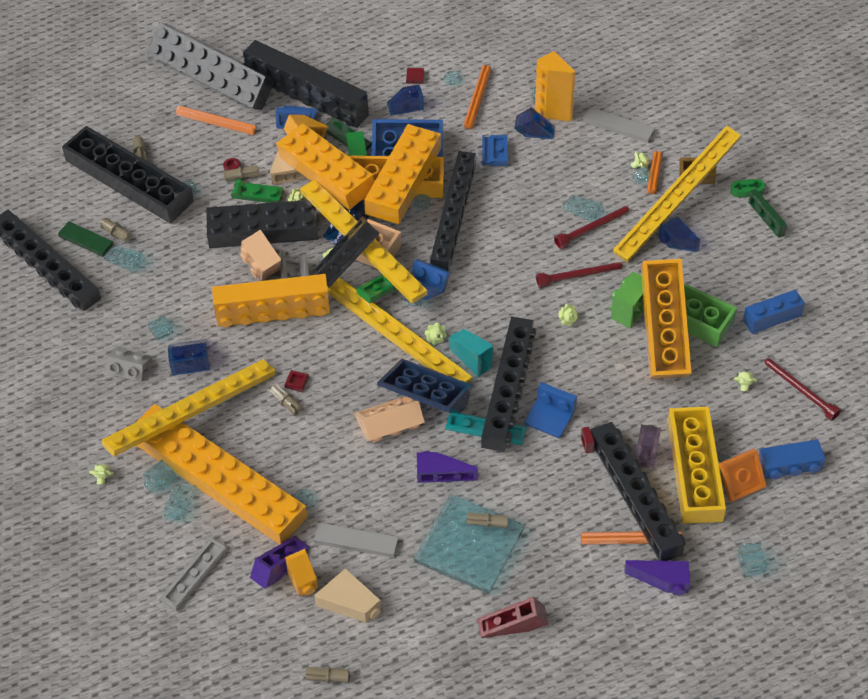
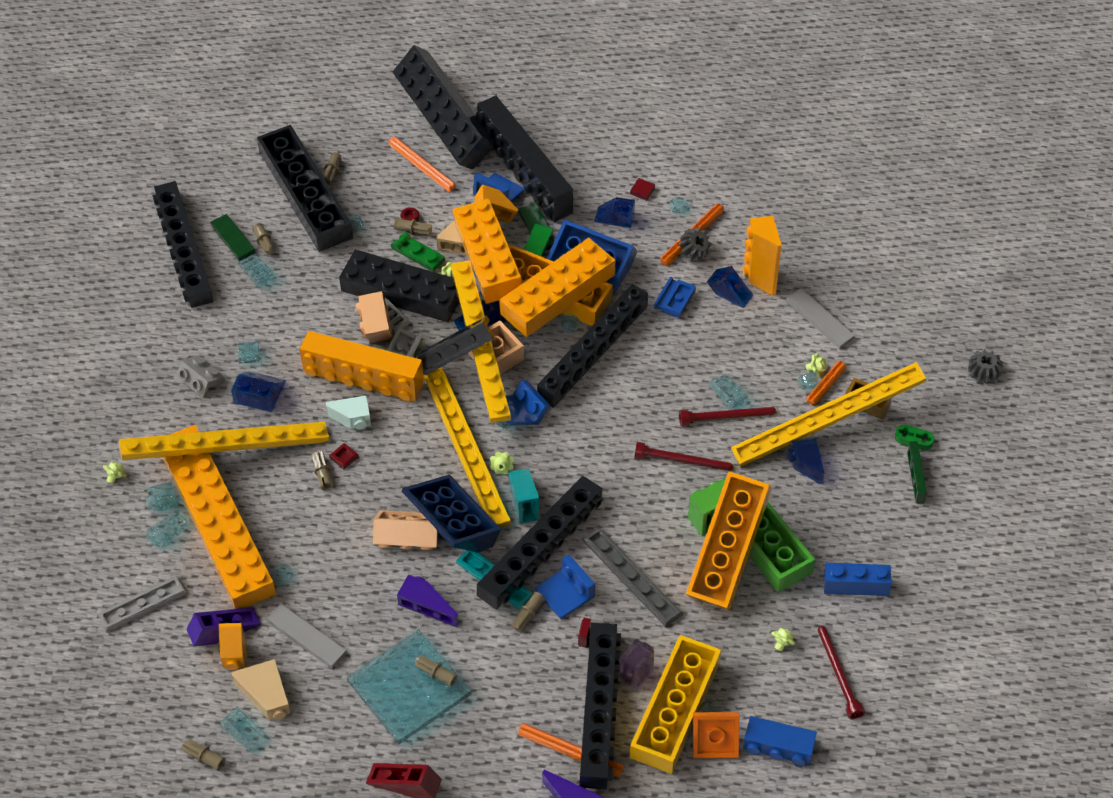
camera: 25 degrees right, 0 degrees up
(282, 342) = (350, 412): none -> light aqua slope
(349, 646) = (236, 714): none -> clear light blue slope
(375, 289) = (466, 394): green plate -> none
(487, 102) = (695, 244): none -> dark grey gear
(530, 443) = (528, 611): none -> dark tan axle
(568, 315) = (644, 497): yellowish green plant -> none
(596, 381) = (632, 577): none -> dark grey tile
(768, 113) = (985, 366): none -> dark grey gear

